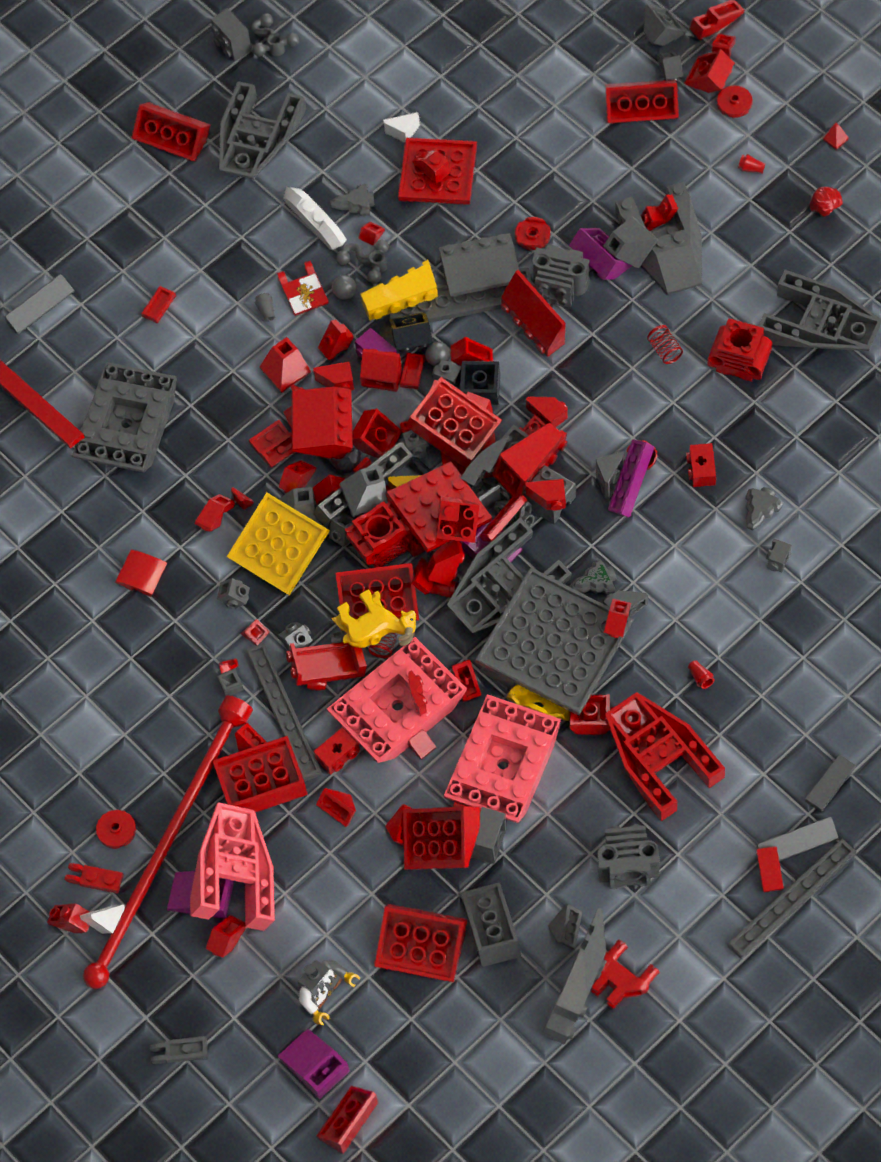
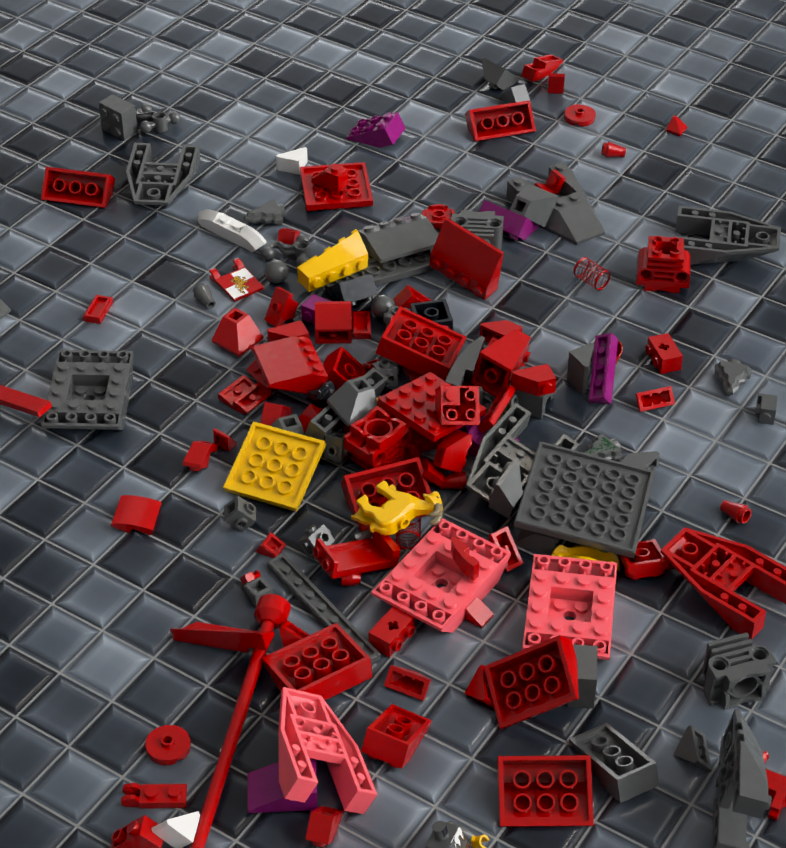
camera: 20 degrees left, 20 degrees down
(187, 728) = (223, 637): none -> red wedge
(310, 860) = (395, 736): none -> red slope
(479, 624) = (507, 490): none -> dark grey slope
(504, 93) = (378, 130): none -> magenta slope
(617, 618) = (642, 468): red slope -> none
(672, 520) = (655, 398): none -> red slope
(710, 72) = (551, 97): red slope -> none
(825, 200) = (688, 164): red hair -> none

